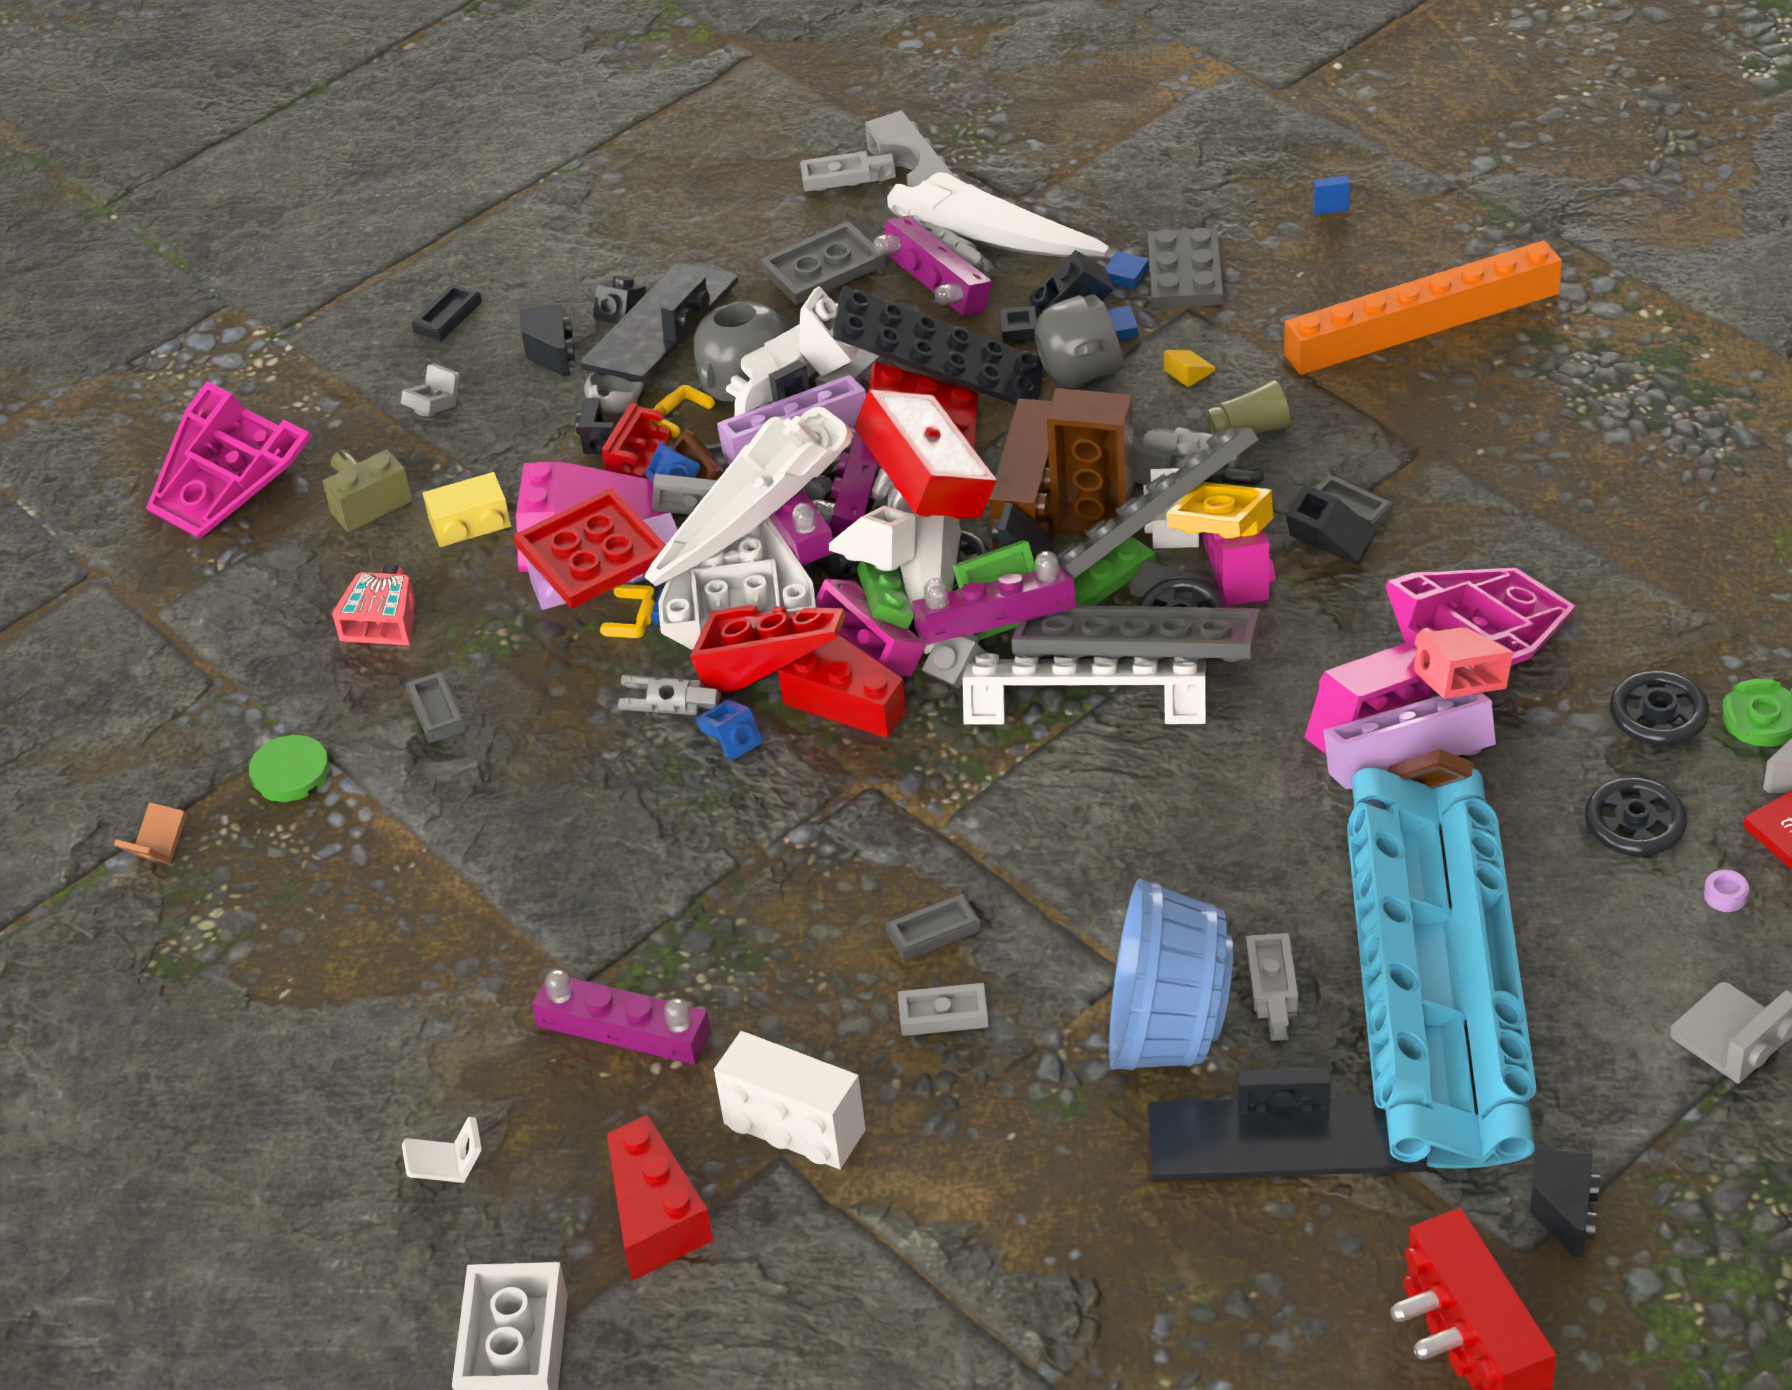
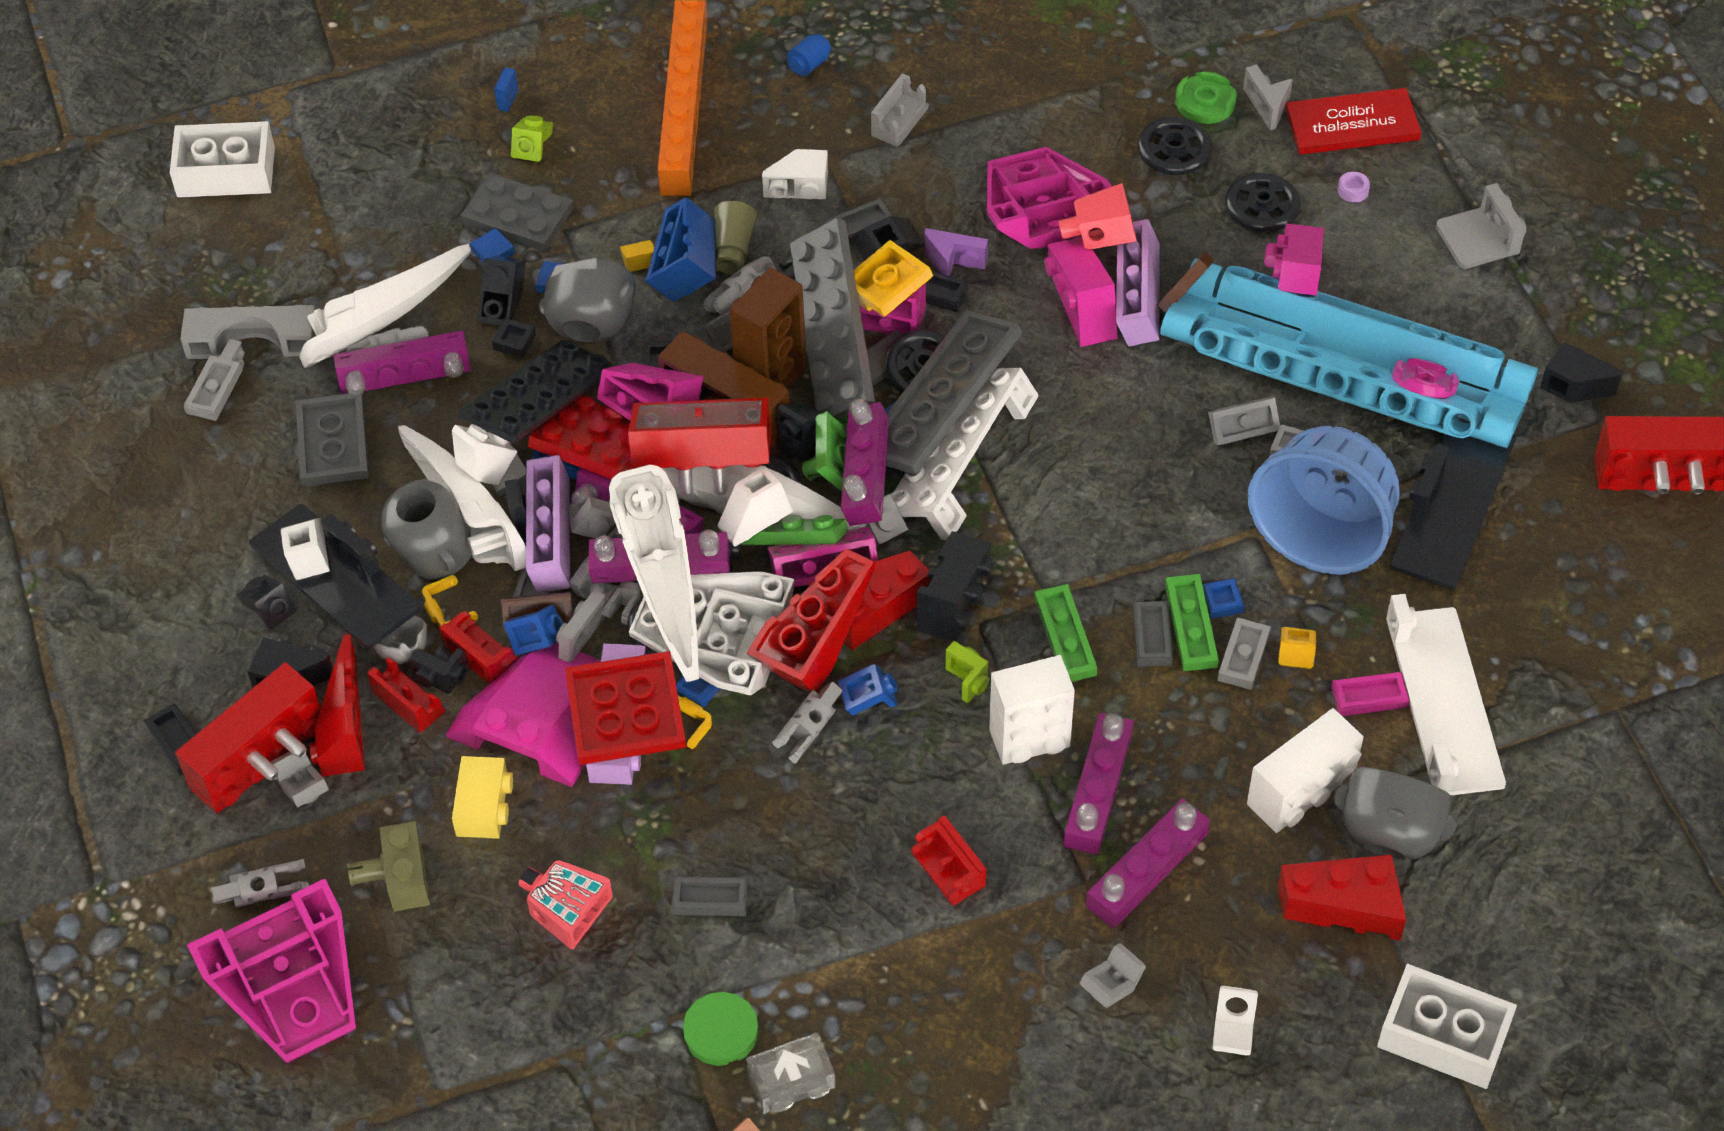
camera: 70 degrees left, 10 degrees up
(251, 830) = (791, 1073): none -> clear brick
(312, 416) = (242, 885): none -> light grey hinge
(452, 334) = (248, 736): none -> red piece
(459, 1034) = (1114, 977): none -> light grey bracket
(514, 387) = (339, 723): none -> red wedge
(553, 420) = (405, 696): none -> red hinge
(553, 863) = (949, 861): none -> red hinge
(659, 277) = (305, 548): none -> white slope
(704, 943) = (1099, 783): none -> magenta piece
(737, 835) = (1031, 710): none -> white brick
(772, 1200) = (1394, 813): none -> dark grey piece
(792, 797) = (968, 666): none -> lime bracket
(886, 851) = (1065, 631): none -> bright green plate
(891, 736) = (954, 586): none -> black wedge
(954, 1145) = (1370, 694): none -> dark pink tile
(961, 949) = (1191, 622): none -> bright green plate
(976, 1214) = (1444, 699): none -> white bracket
(985, 1057) = (1297, 647): none -> yellow slope
(988, 421) = (641, 383): none -> dark pink wedge
(1016, 970) = (1223, 598): none -> blue tile
(1098, 62) = (222, 159): none -> white brick
(1199, 382) = (683, 251): none -> blue wedge
(1275, 900) = (1244, 420): none -> light grey plate
(1284, 231) = (529, 138): none -> lime bracket
(1299, 590) = (945, 291): none -> black tile
(1350, 579) = (949, 248): none -> medium lavender slope
(1374, 431) = (797, 175): none -> white slope
(1432, 1032) = (1425, 378): none -> dark pink tile
(1526, 469) = (898, 111): none -> light grey hinge
(1540, 860) = (1297, 258): none -> dark pink piece
(1553, 376) = (808, 54): none -> blue brick

